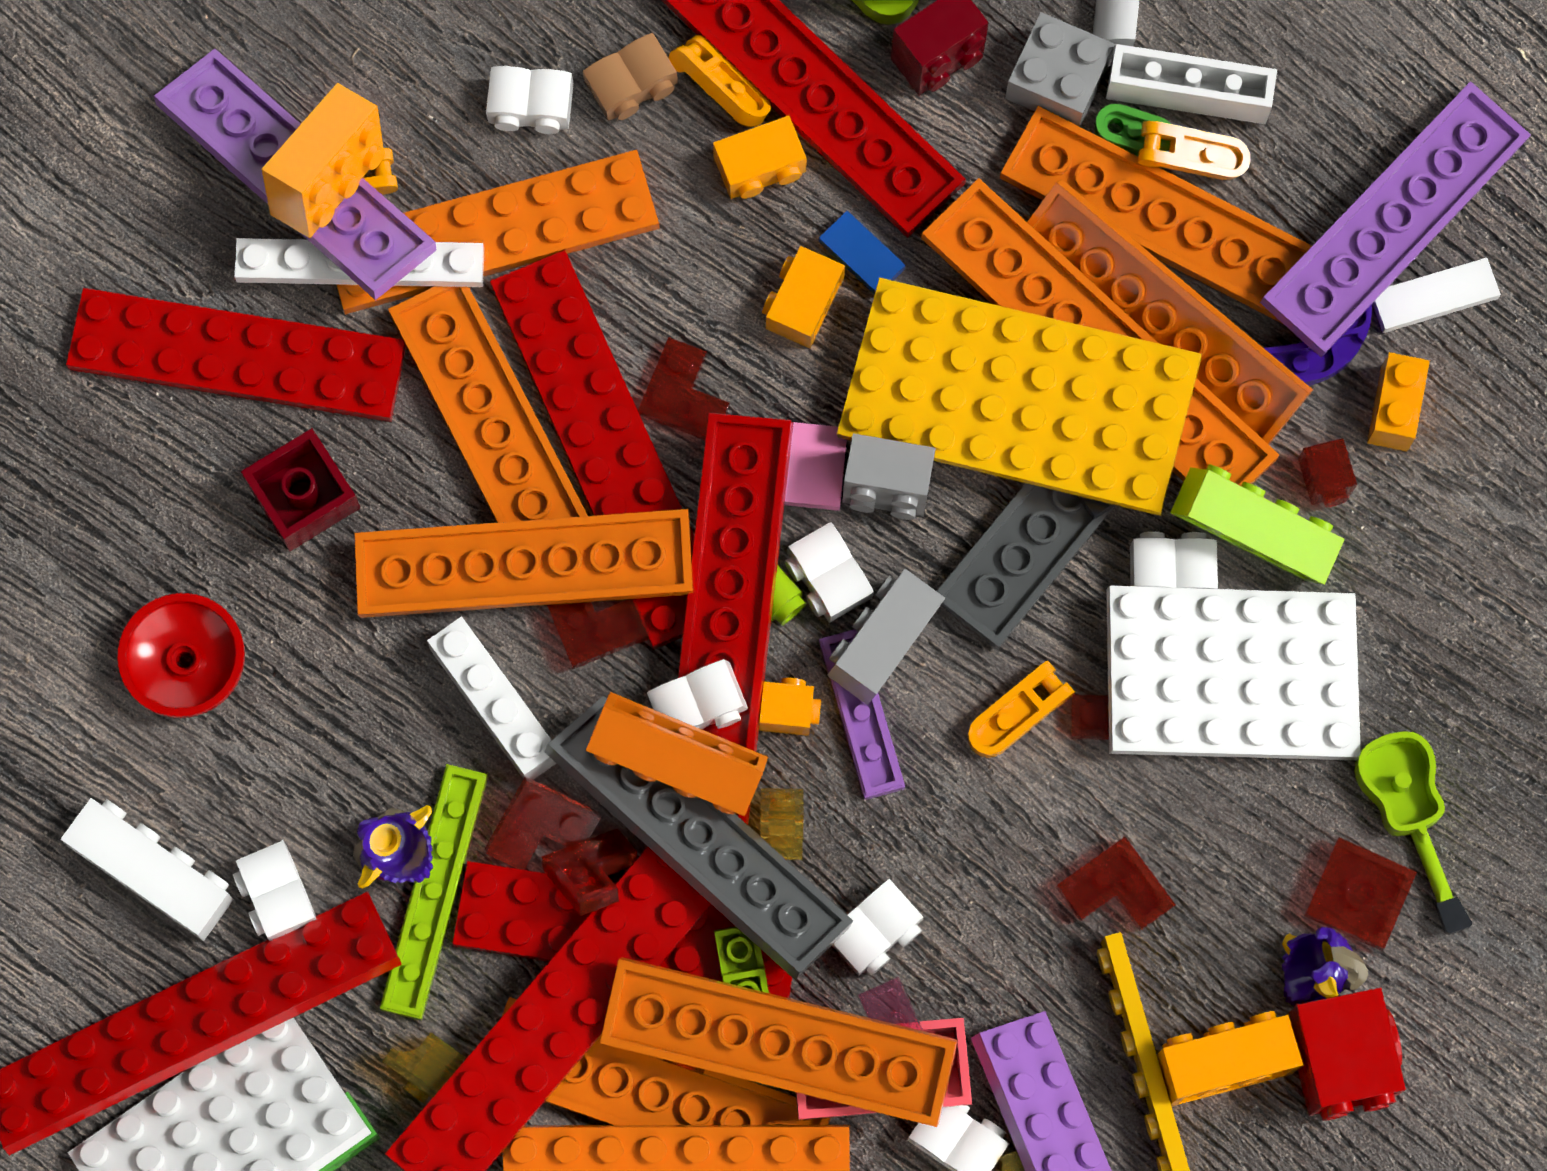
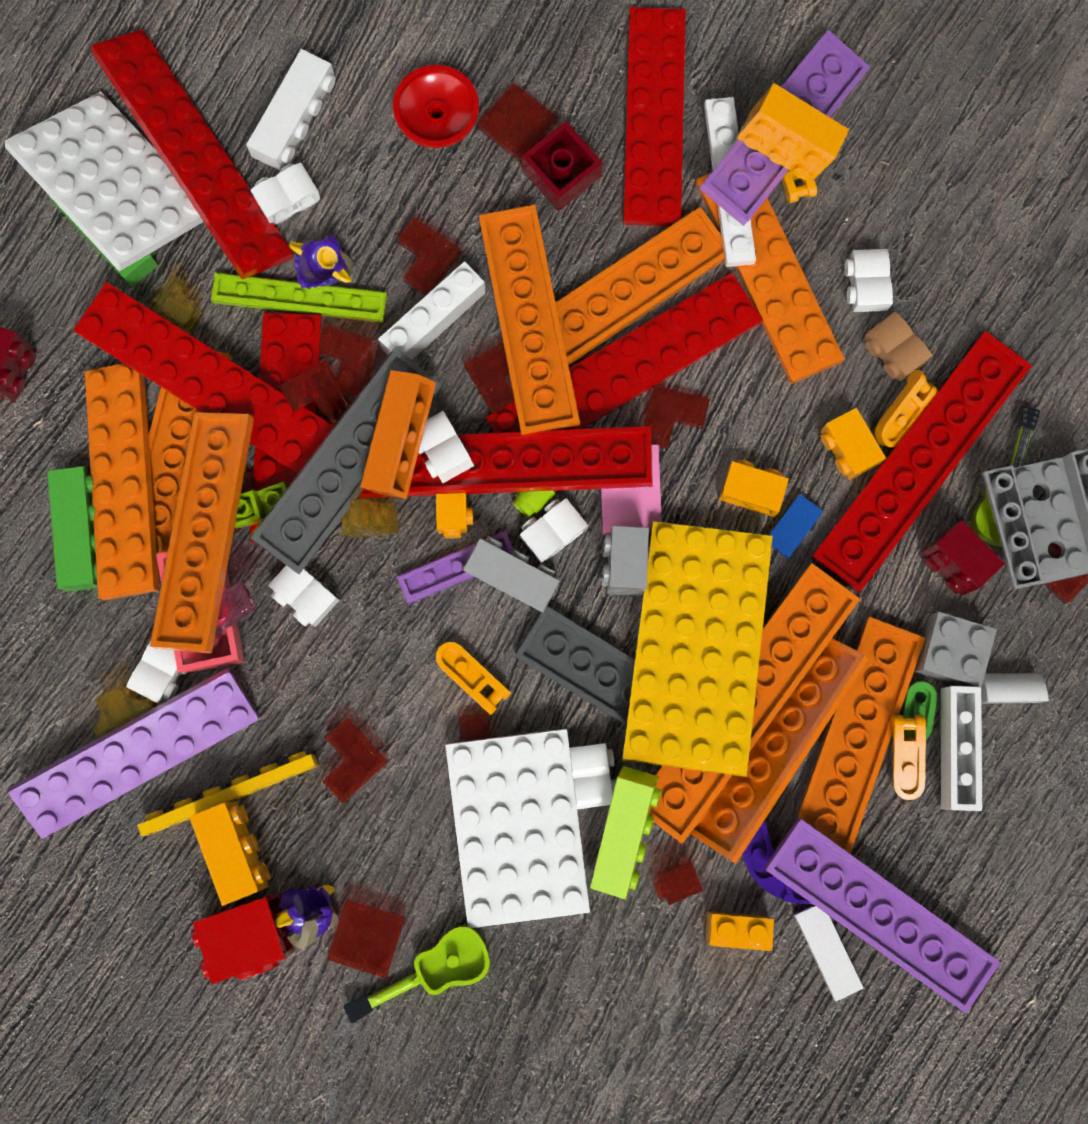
camera: 80 degrees right, 5 degrees up
(216, 548) = (517, 122): none -> clear red plate
(399, 688) = (434, 254): none -> clear red plate

